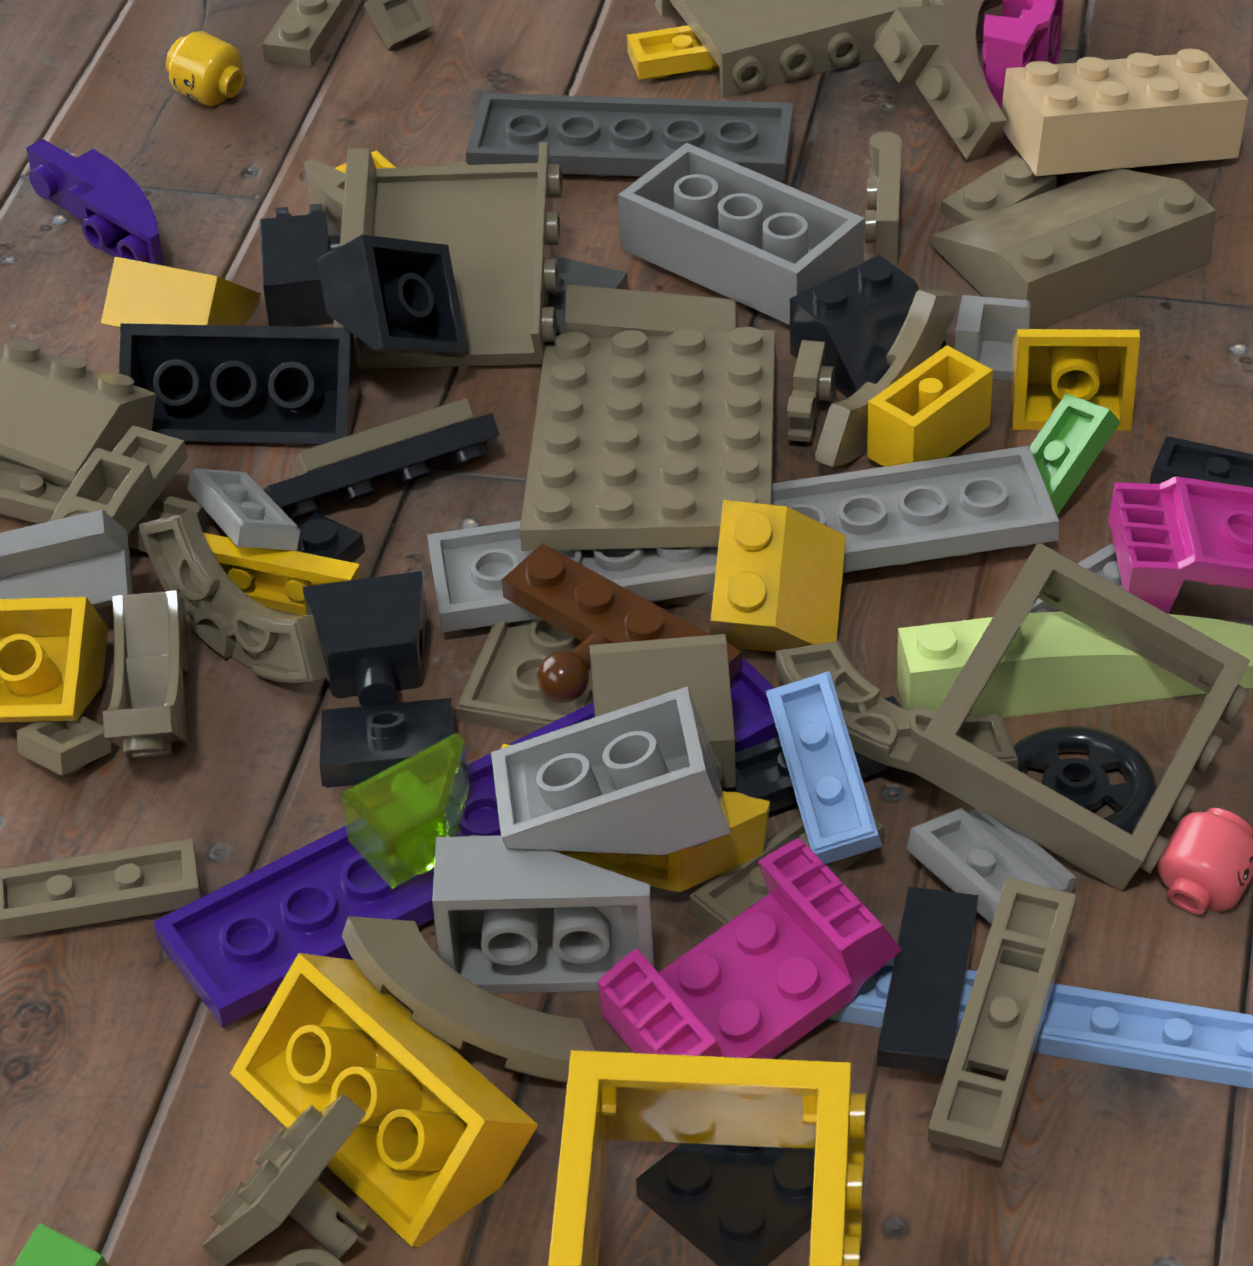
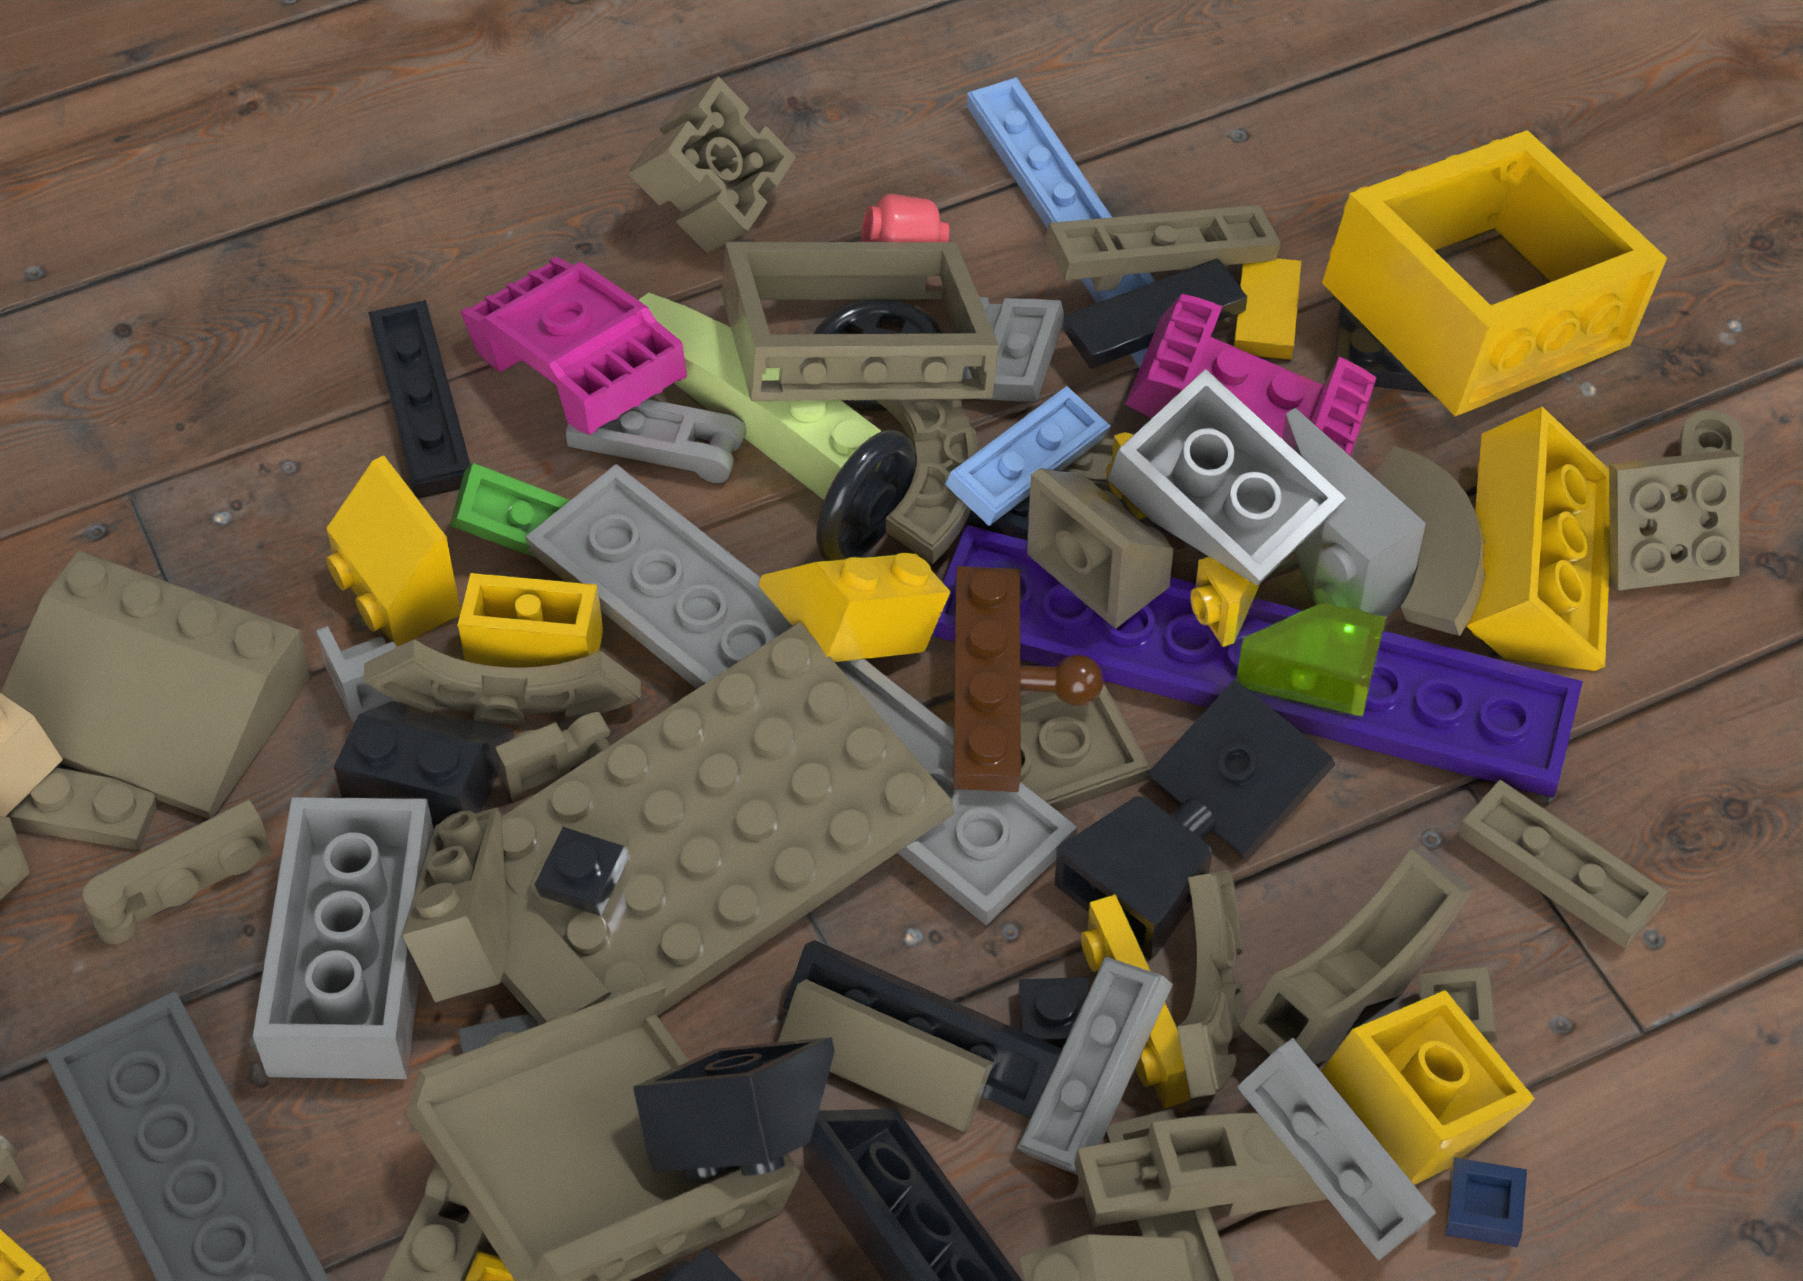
camera: 130 degrees left, 10 degrees up
(670, 339) = (581, 871): none -> black plate
(695, 269) = (460, 907): none -> dark tan slope
(869, 627) = (865, 496): none -> black plate
(895, 1110) = (1271, 308): none -> yellow tile

